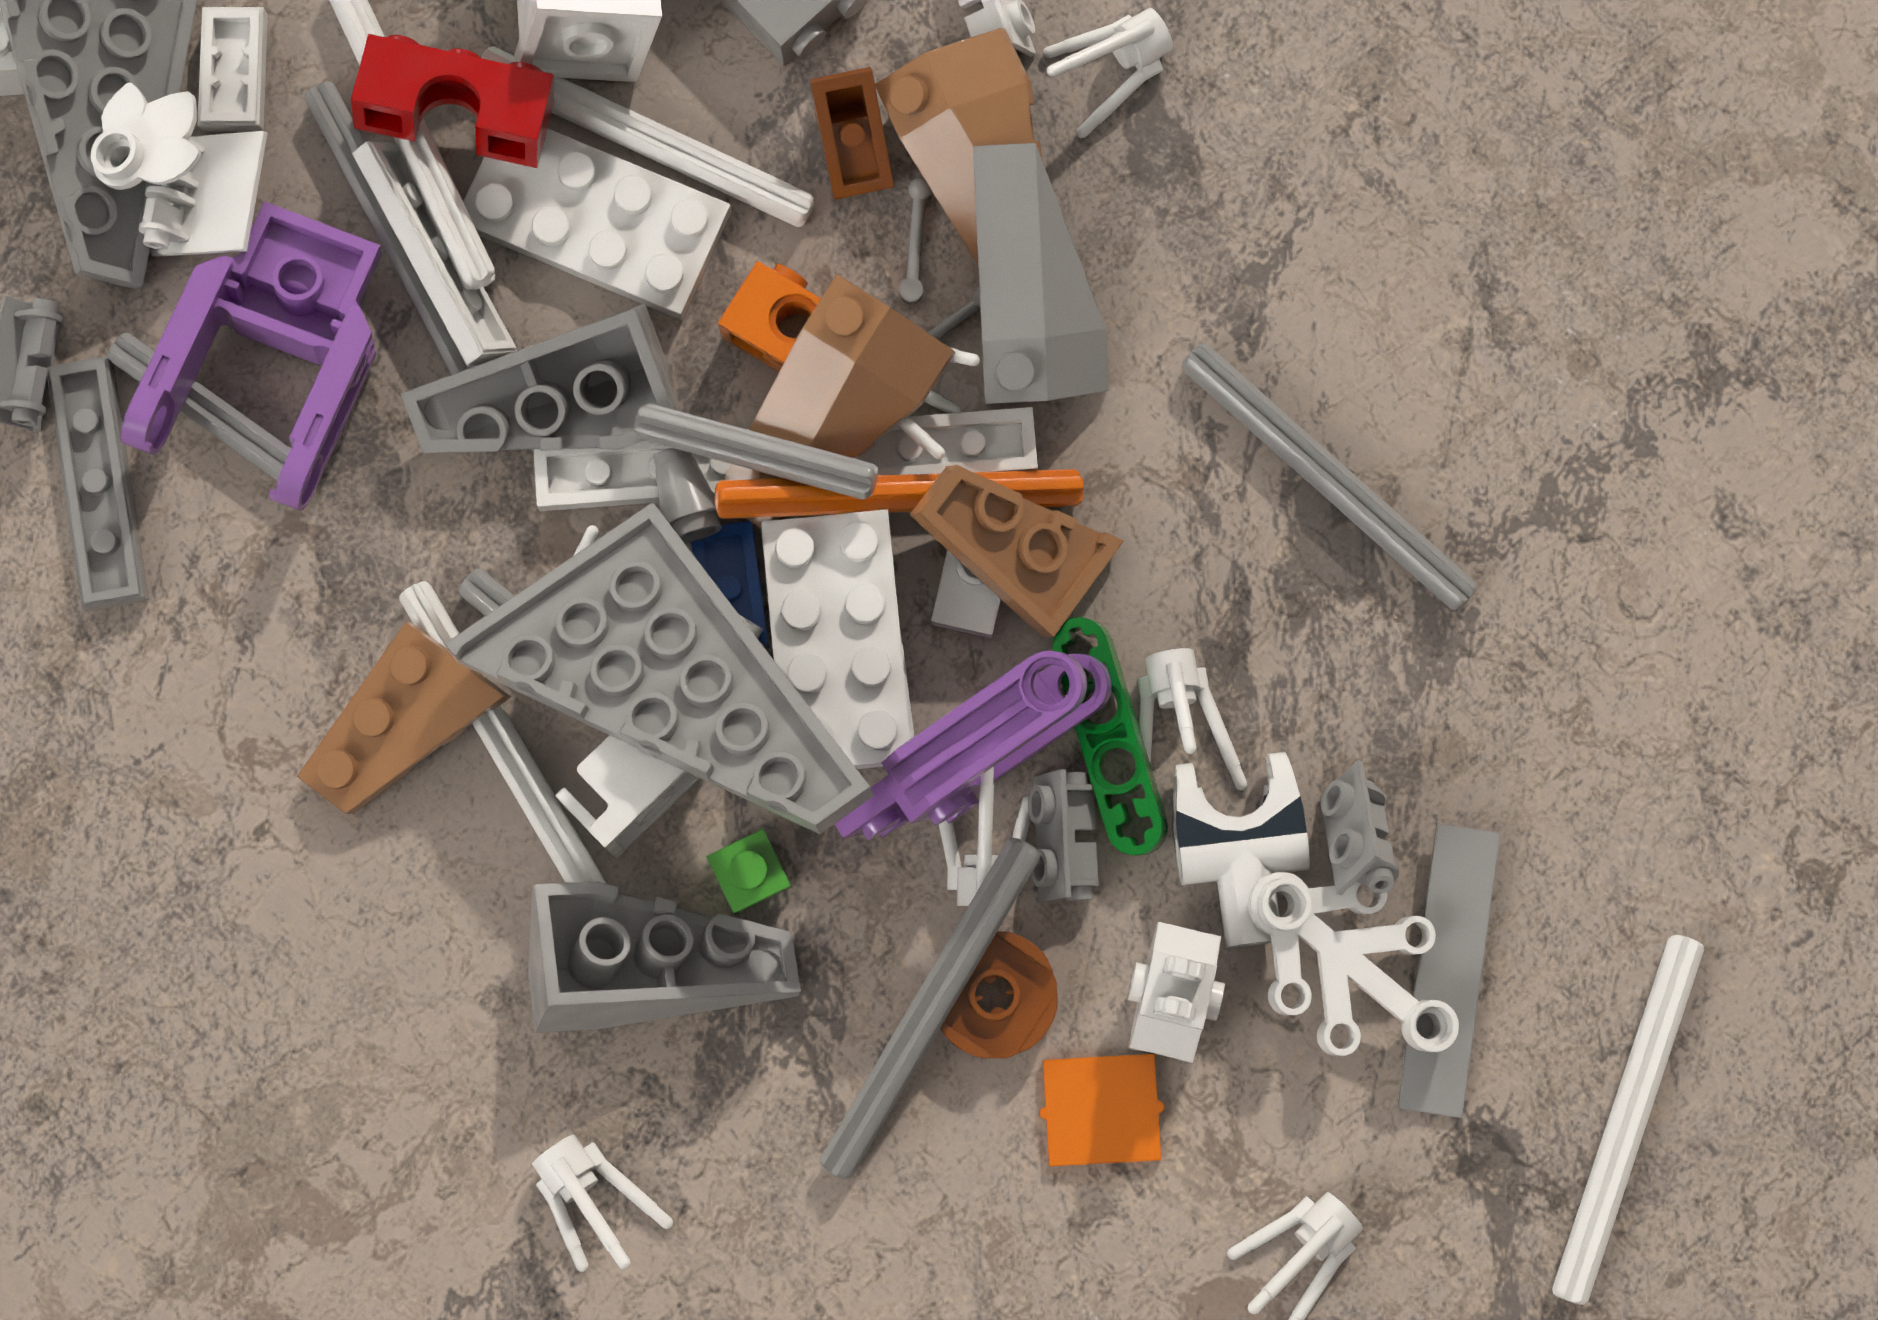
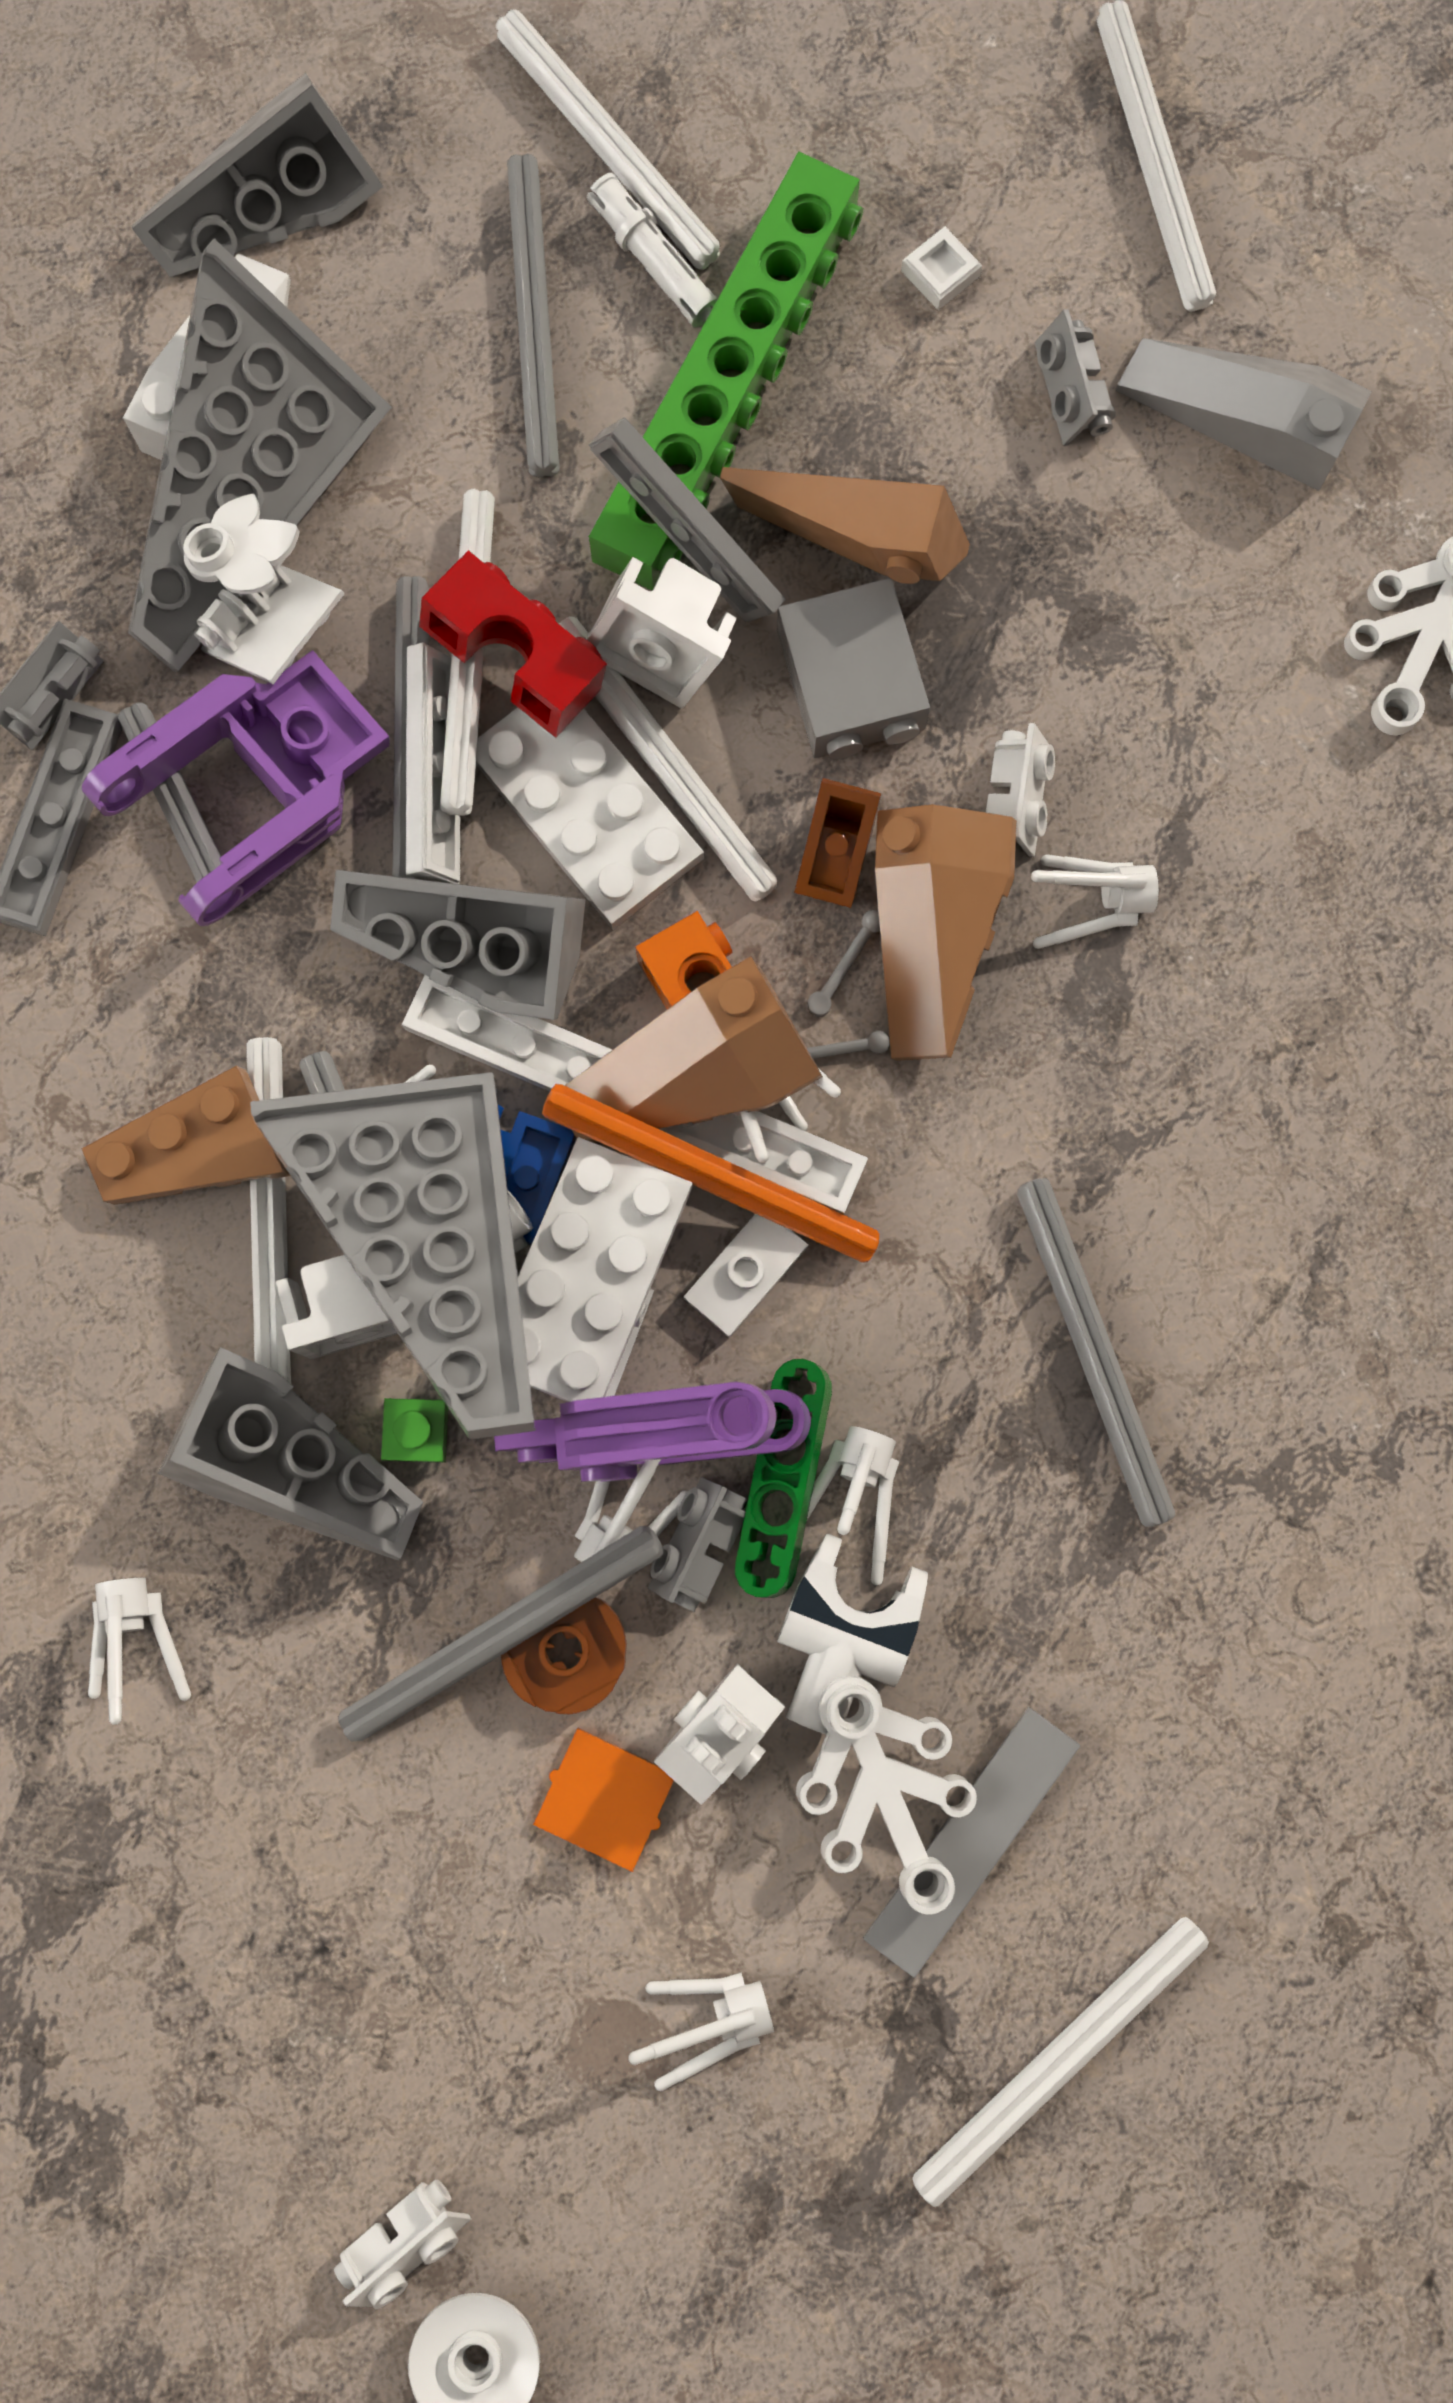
camera: 30 degrees right, 0 degrees up
(232, 69) = (350, 528): white plate -> none
(685, 496) = (526, 1080): light grey cone -> none
(756, 451) = (605, 1074): light grey axle -> none
(1019, 550) = (787, 1272): medium nougat wing -> none
(1035, 301) = (918, 1066): light grey wedge -> none
(1355, 832) = (955, 1666): light grey hinge -> none

